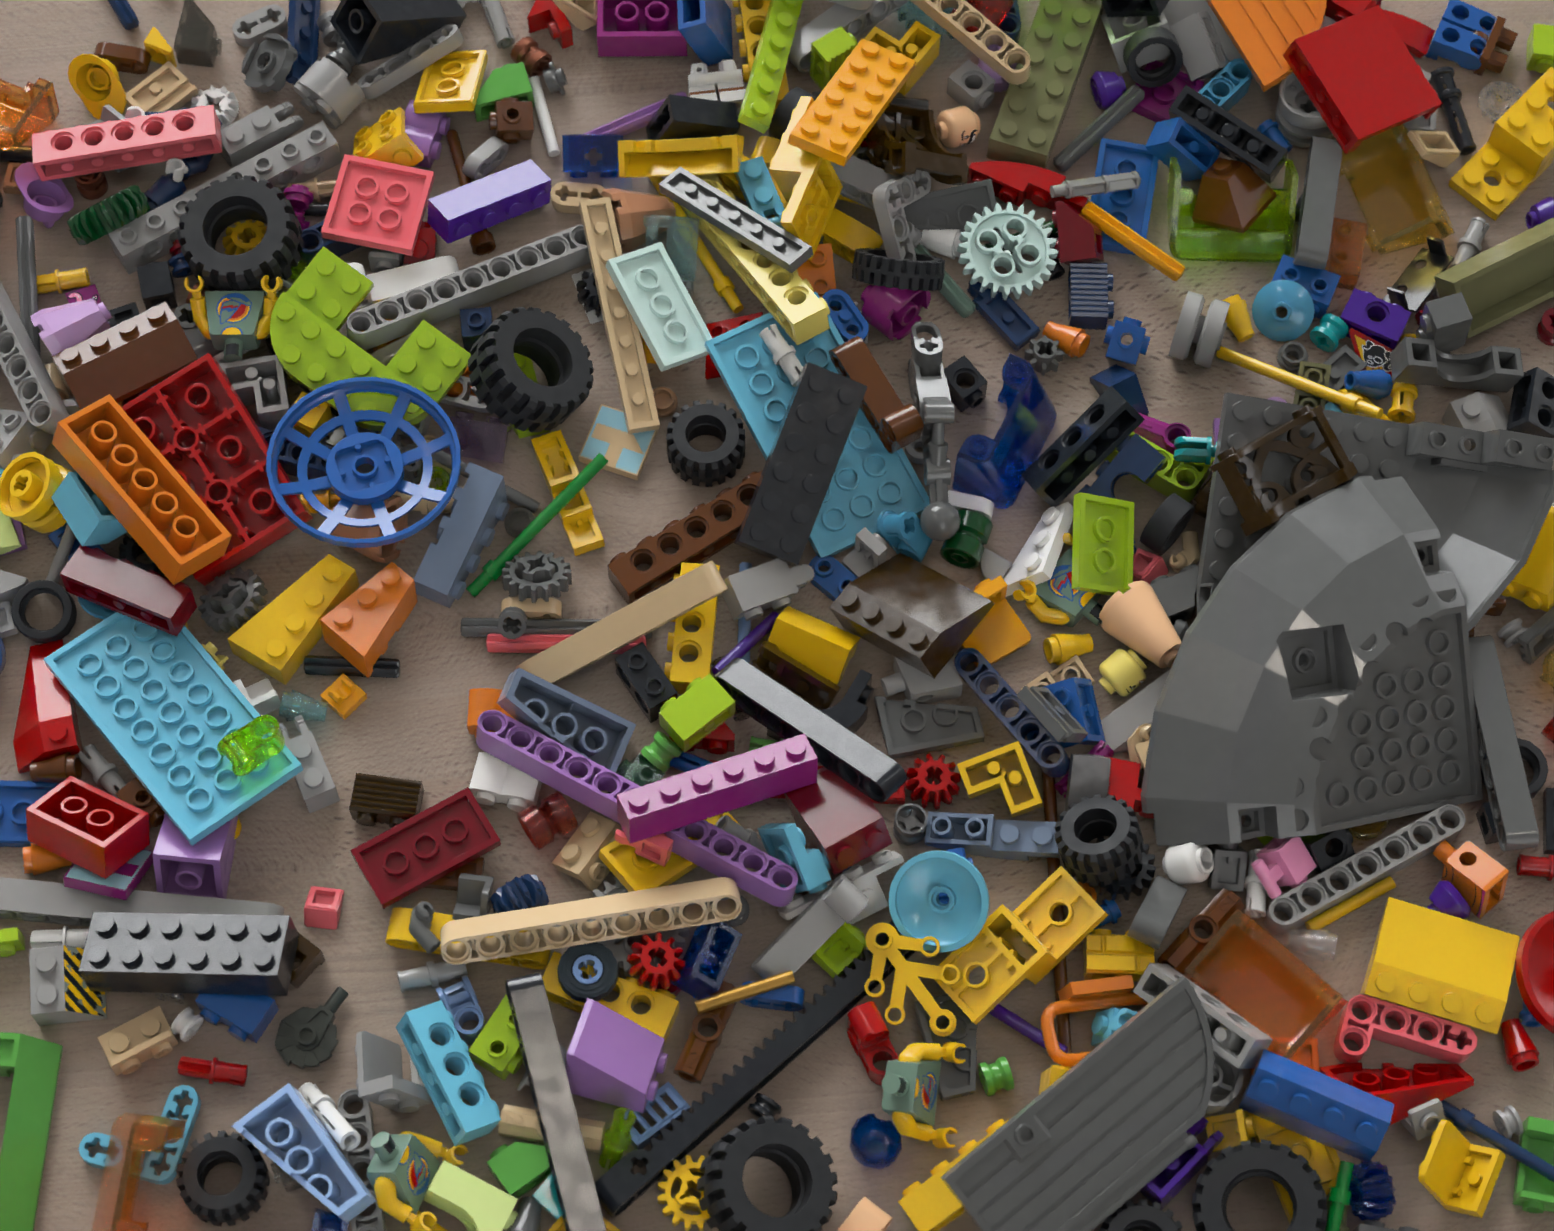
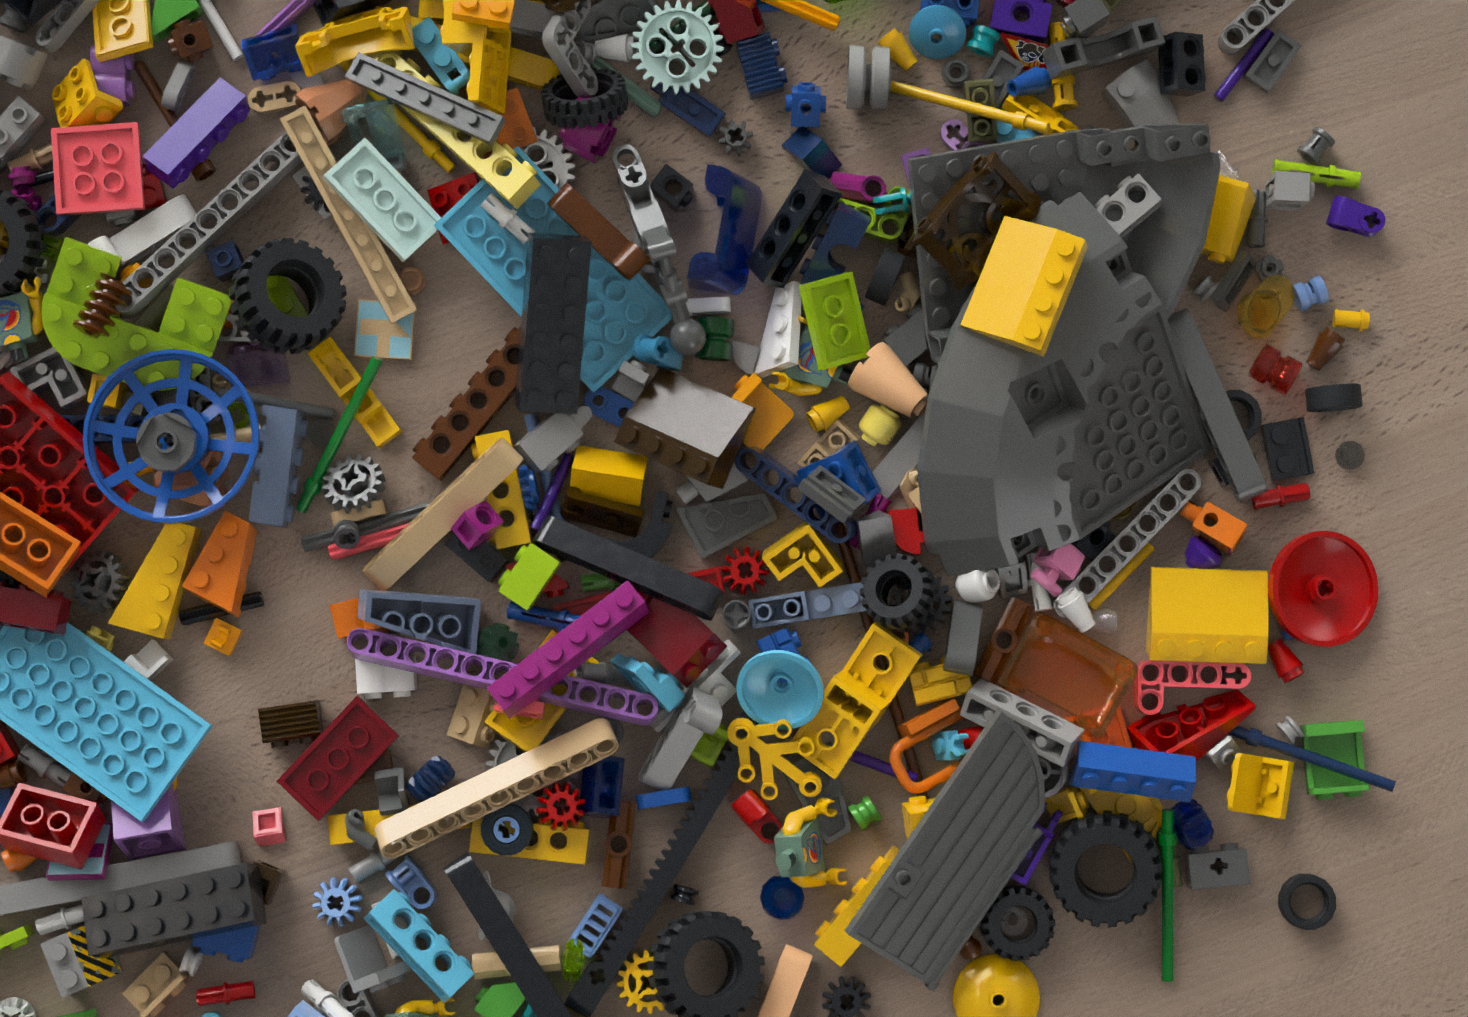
camera: 10 degrees left, 20 degrees up
(251, 746) = (163, 725): clear neon green piece -> none
(298, 704) = (191, 659): clear light blue cone -> none
(309, 1033) = (293, 940): pearl dark grey piece -> none
(315, 780) = (215, 709): light grey hinge -> none
(337, 316) = (101, 306): none -> reddish brown piece
(361, 1012) = (336, 891): none -> light blue gear
(362, 476) = (172, 458): none -> dark grey plate
(498, 1044) = (449, 907): lime brick -> none
(547, 820) = (427, 711): clear red wheel -> none
(614, 1059) = (551, 895): medium lavender slope -> none
(657, 643) = (477, 525): none -> magenta brick
(661, 751) = (509, 617): bright green wheel -> none
(705, 420) = (444, 296): black tyre -> none
(723, 630) = (529, 487): none -> blue gear
(744, 992) = (640, 807): pearl gold bar -> none
(848, 316) = (551, 159): blue plate -> none
(1071, 339) = (754, 114): orange cone -> none
(1148, 566) = (877, 317): coral slope -> none
(1294, 913) = (1075, 608): none -> white cone
(1323, 537) = (1025, 284): none -> yellow slope
(1452, 514) = (1132, 212): none -> light grey brick

